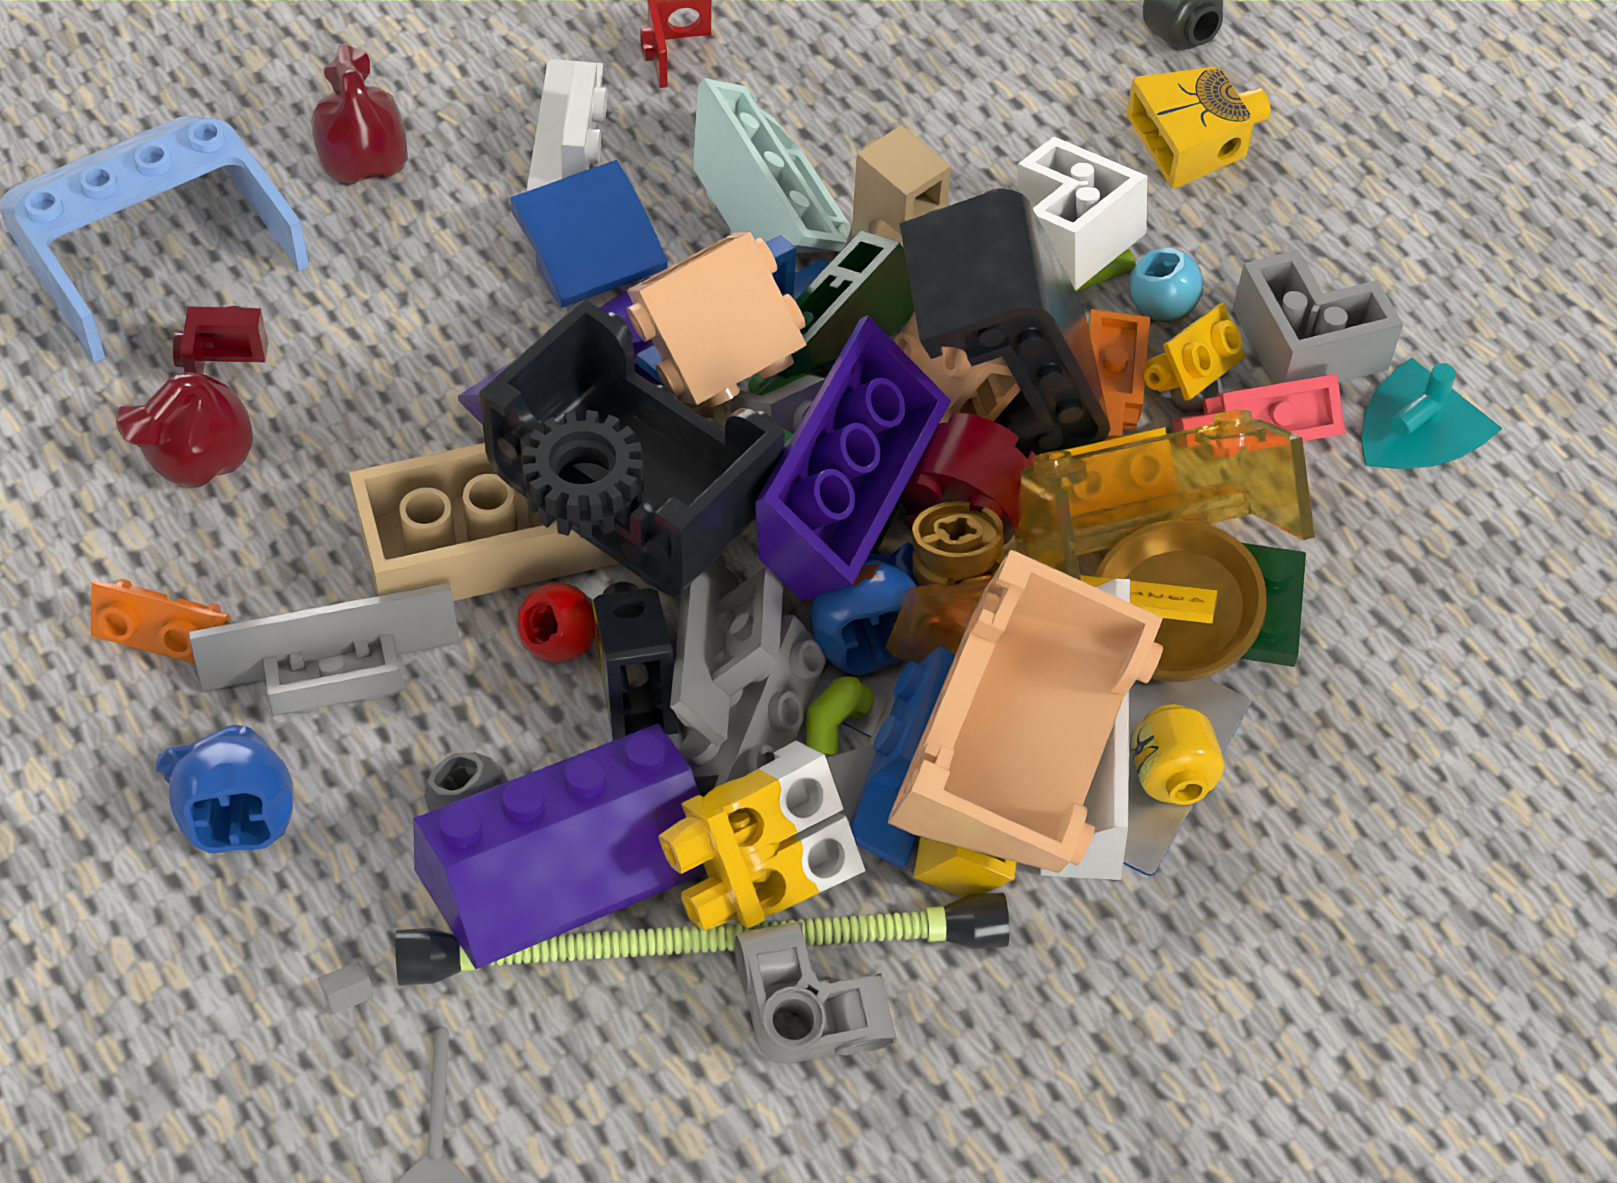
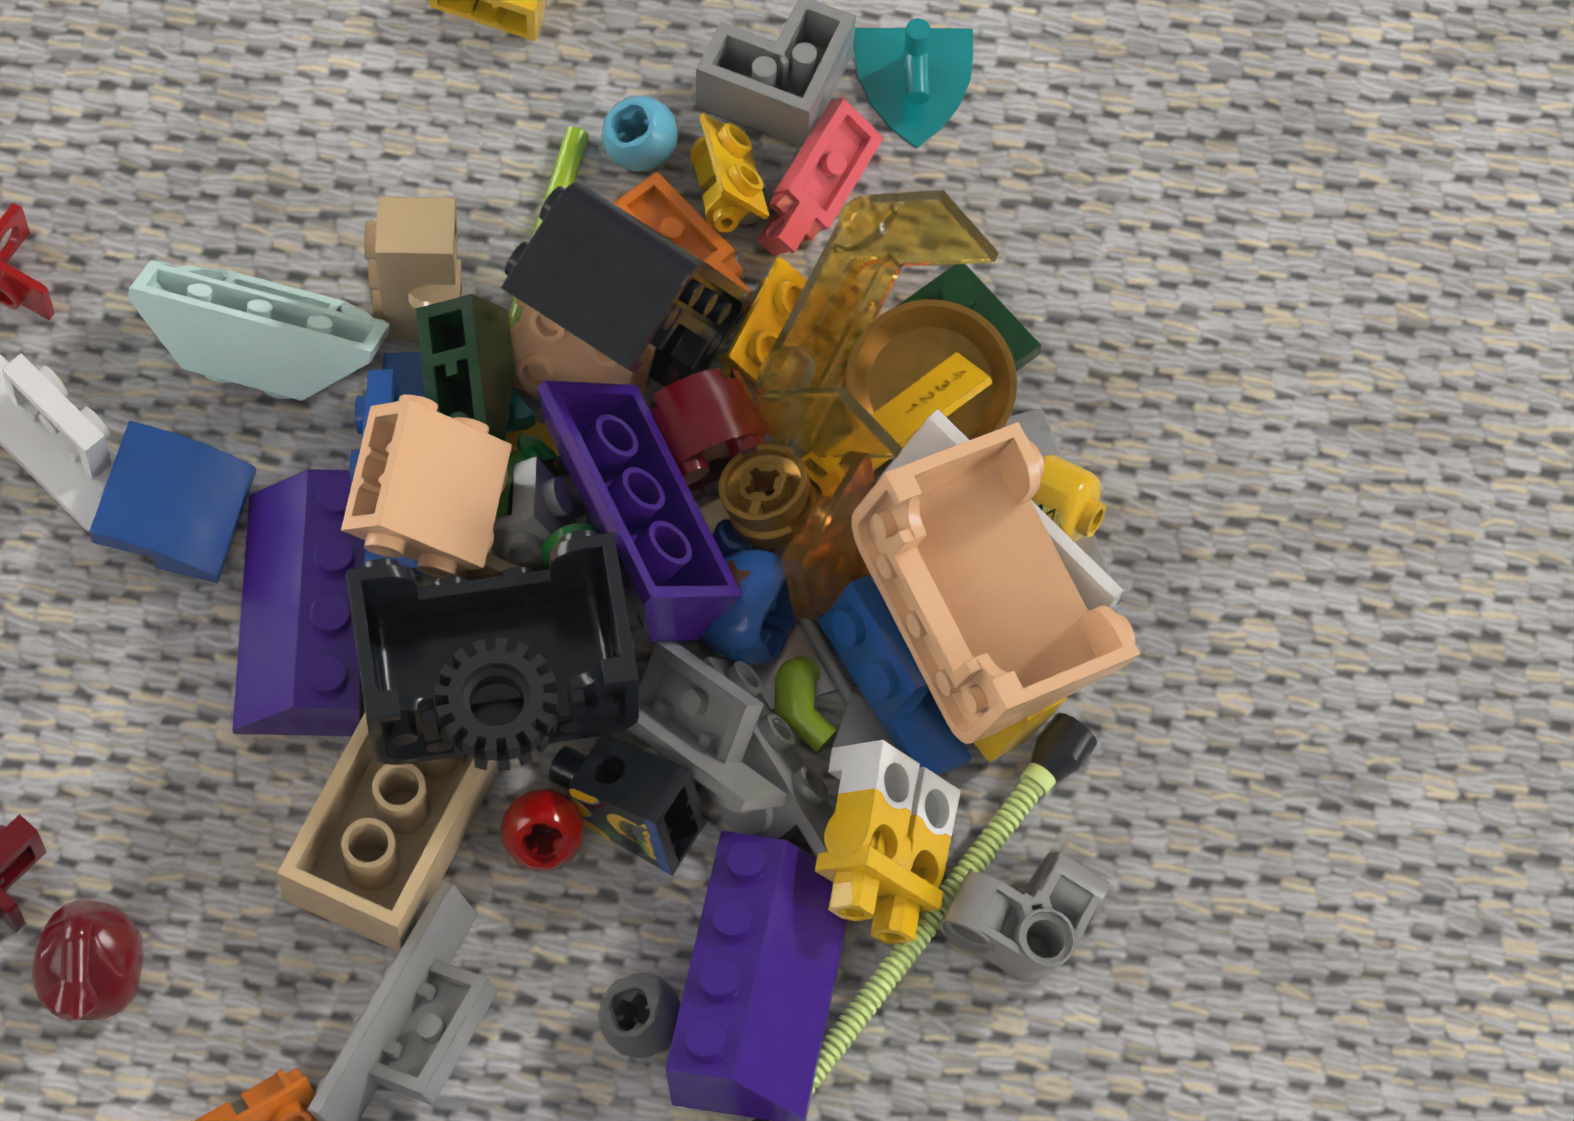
camera: 50 degrees left, 10 degrees up
(1084, 205) = (515, 122): white brick -> none

